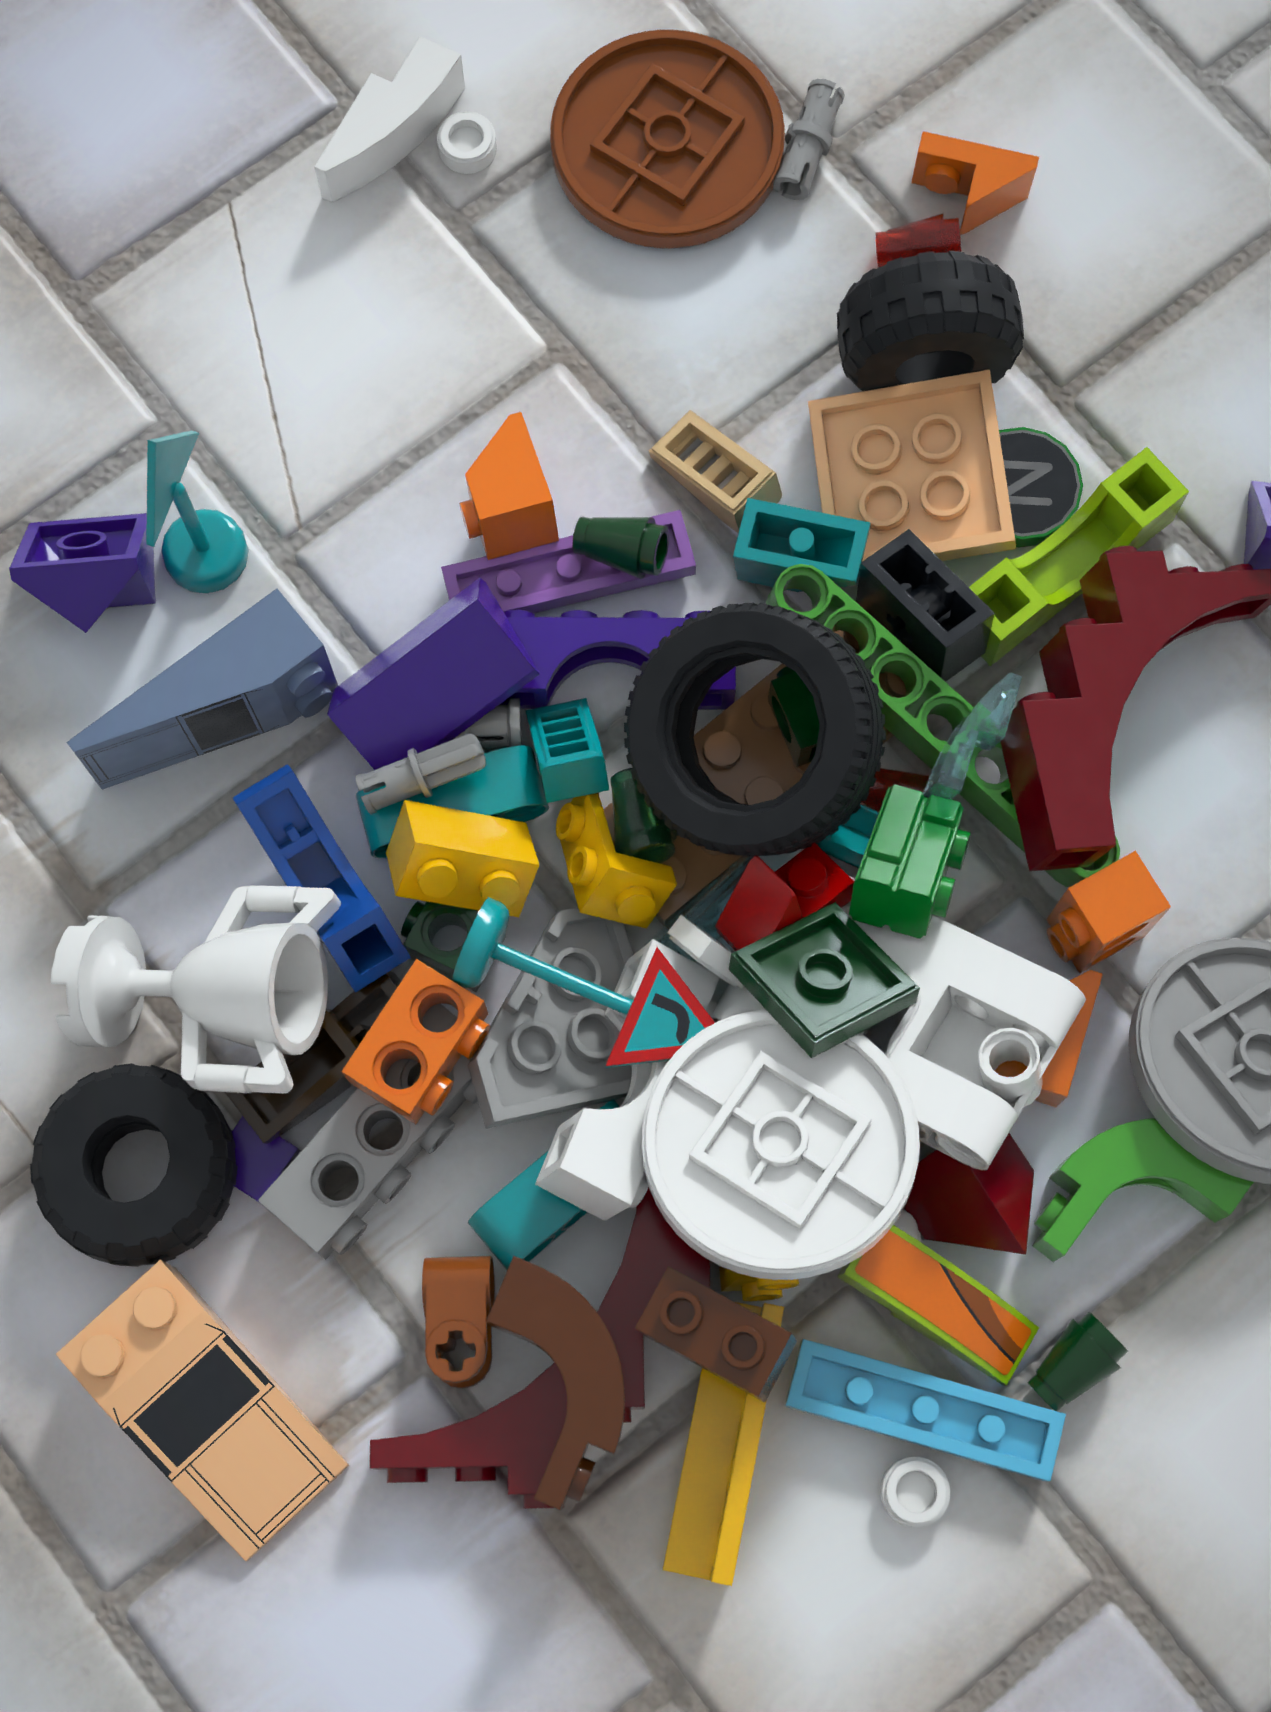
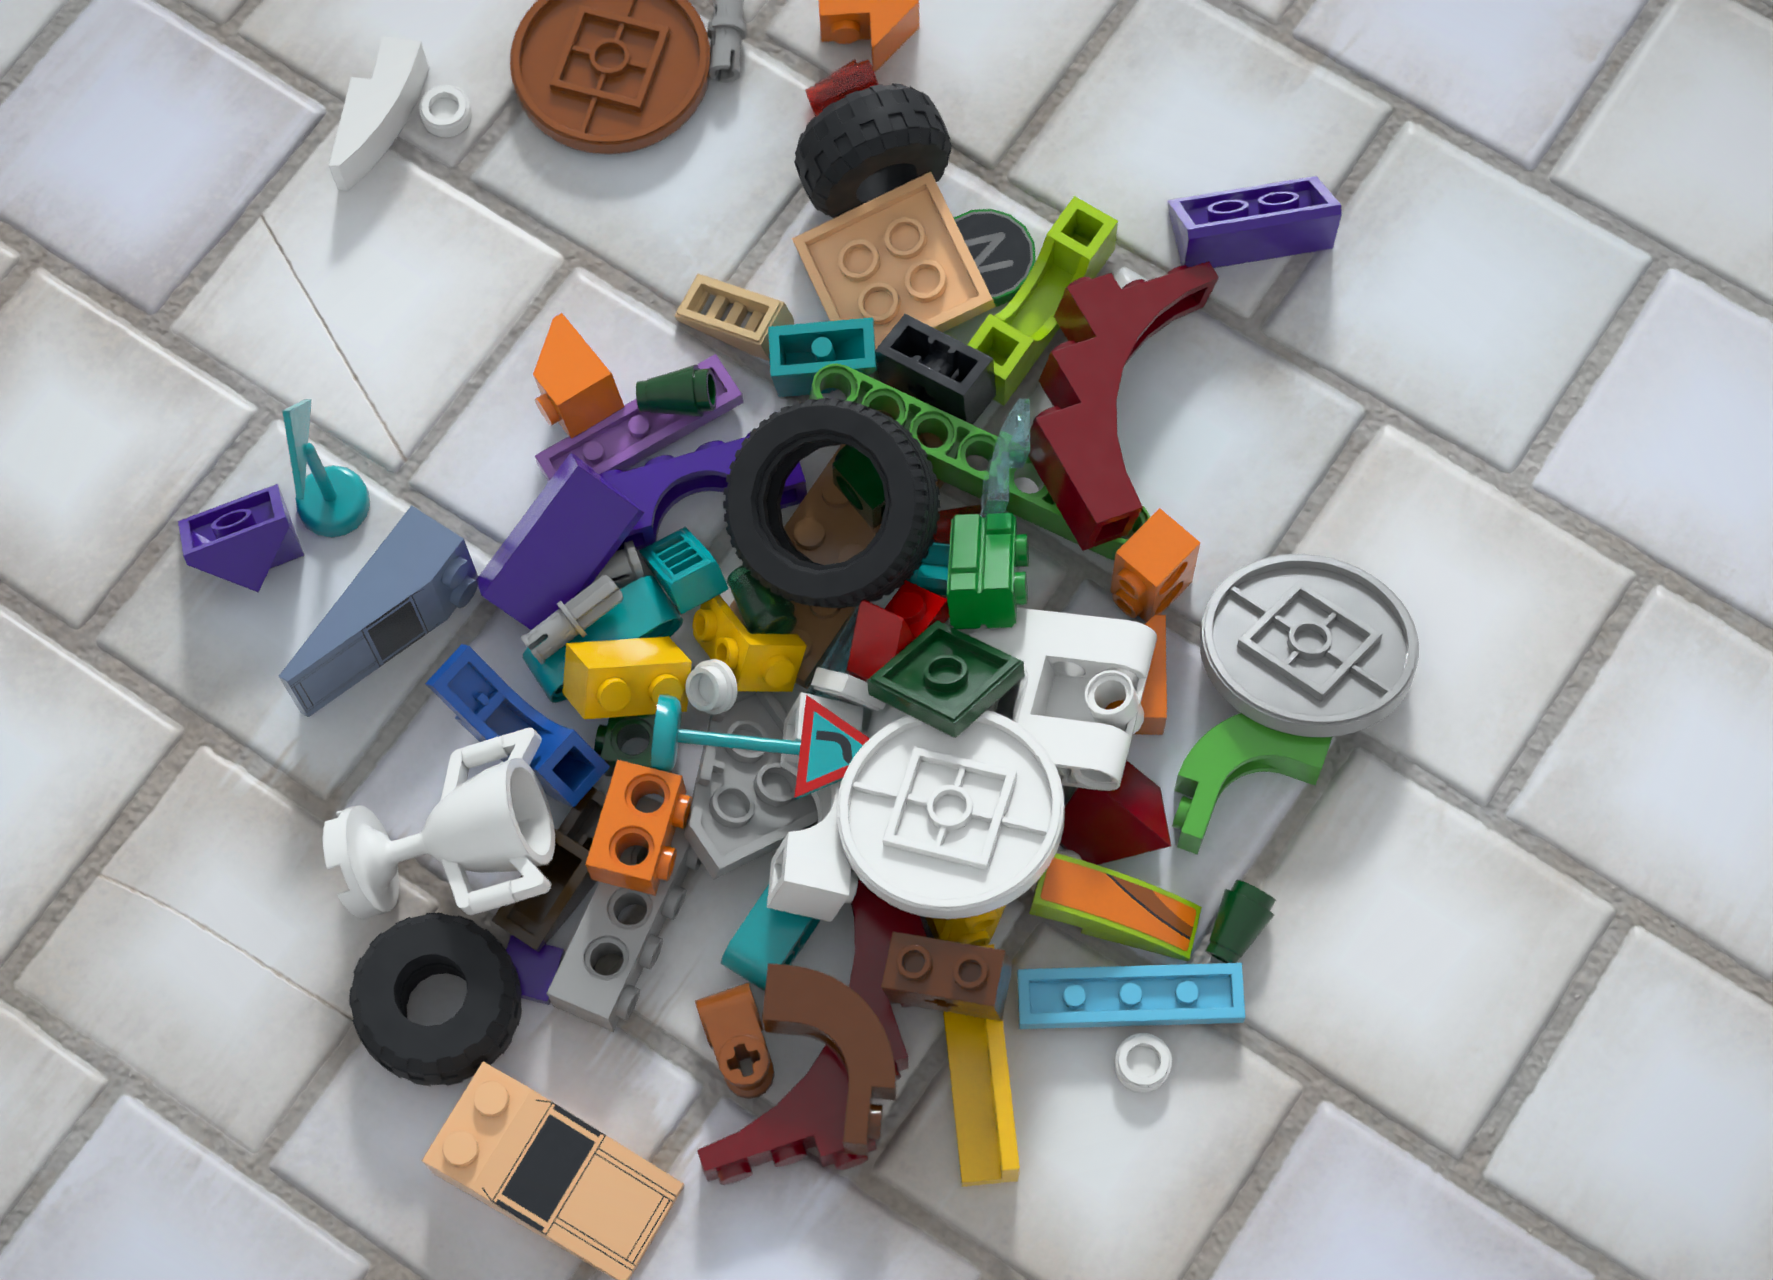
camera: 15 degrees left, 5 degrees down
(553, 901) = (712, 687): none -> white plate

